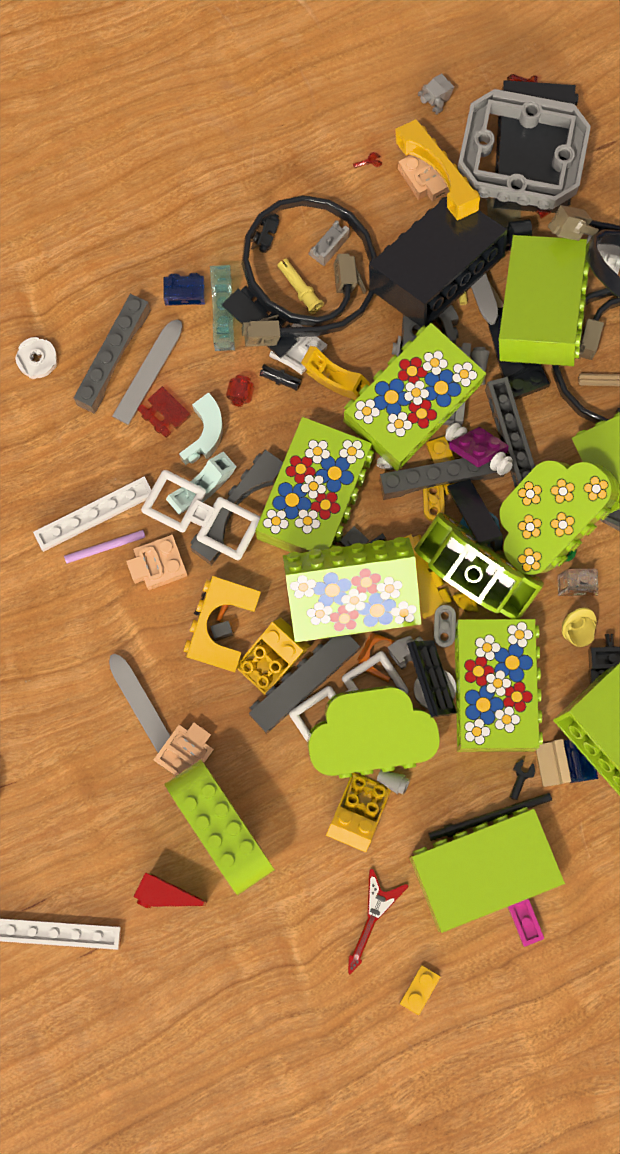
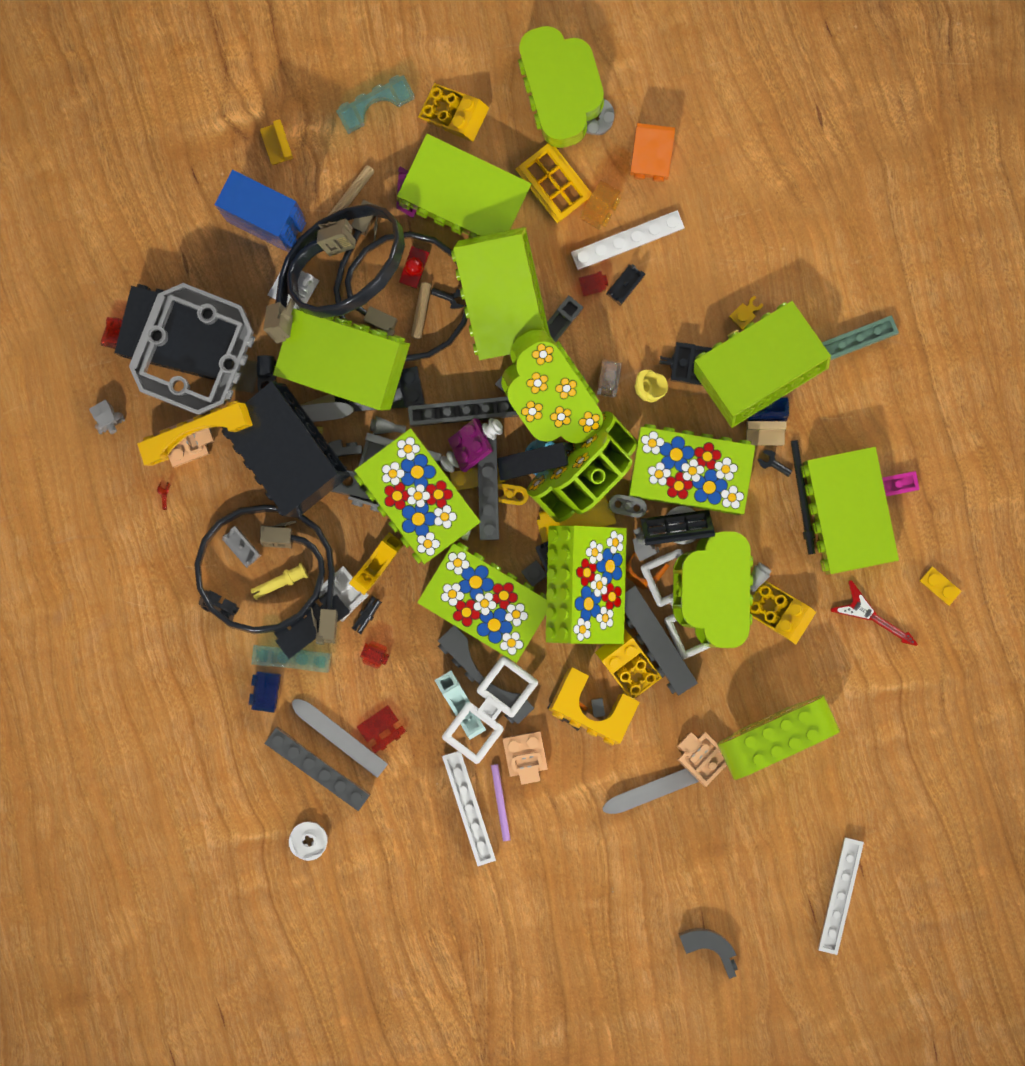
camera: 85 degrees left, 10 degrees up
(160, 893) = (824, 794): red slope -> none
(212, 432) = (405, 685): light aqua arch -> none

